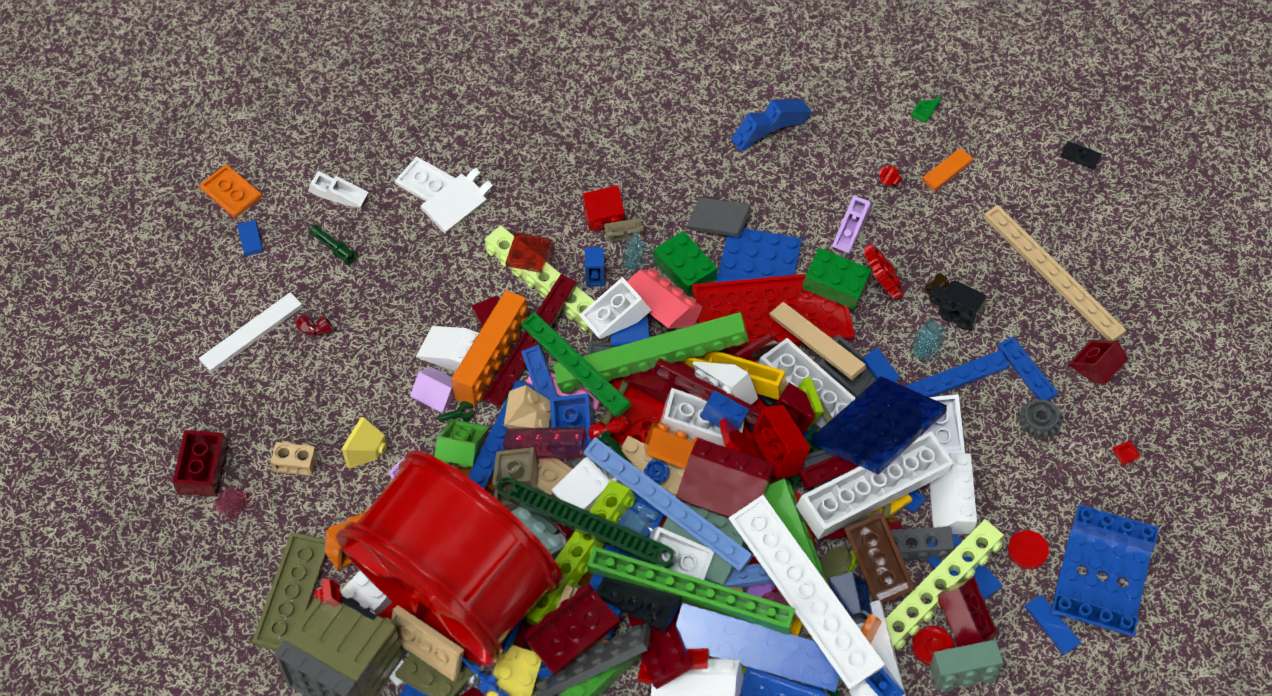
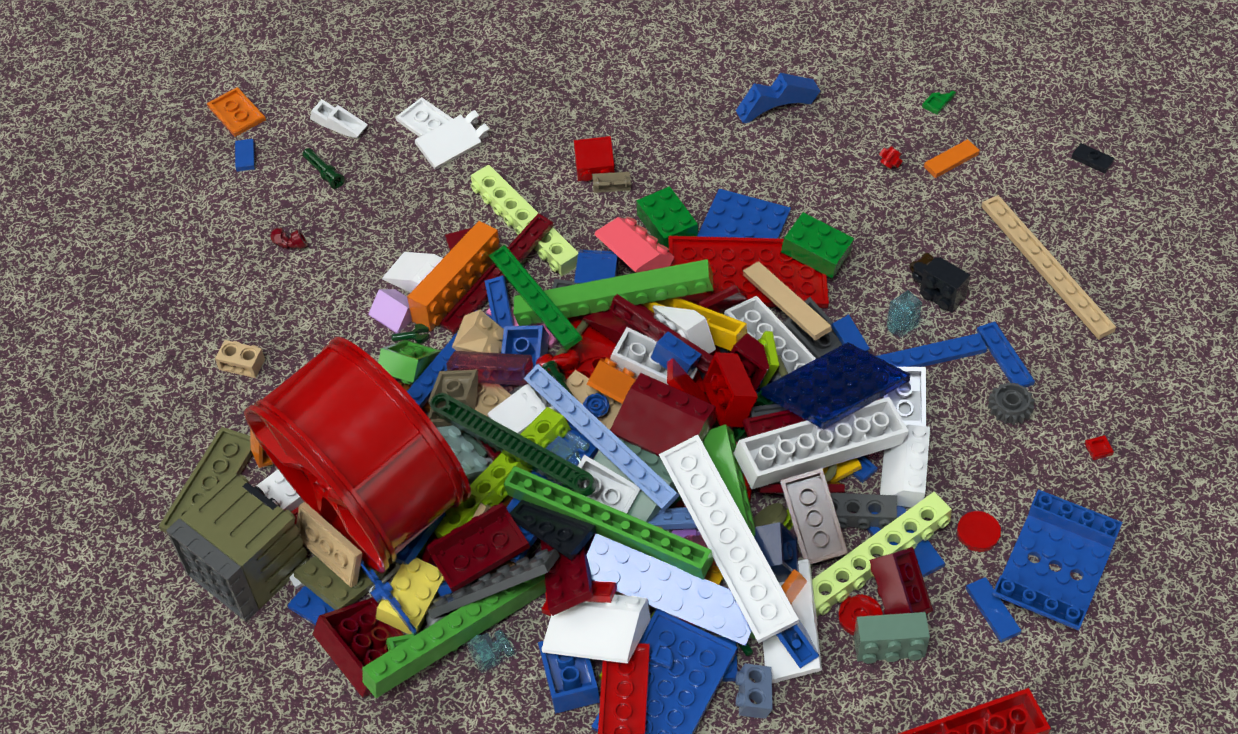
camera: 10 degrees right, 5 degrees down
(200, 463) = (147, 352): dark red brick -> none
(230, 503) = (168, 393): clear pink brick -> none
(250, 332) = (225, 240): white tile -> none
(329, 593) = (233, 476): red tile -> none
(364, 444) = (305, 347): light yellow slope -> none
(528, 252) = (511, 191): clear red tile -> none
(594, 266) = (574, 211): blue brick -> none
(615, 310) = (584, 249): white slope -> none
(634, 252) = (617, 202): clear light blue brick -> none
(719, 217) = (709, 179): dark grey tile -> none
(852, 224) = (845, 197): lavender slope -> none
(884, 271) = (867, 243): red gear -> none
(1099, 360) = (1083, 353): dark red slope -> none

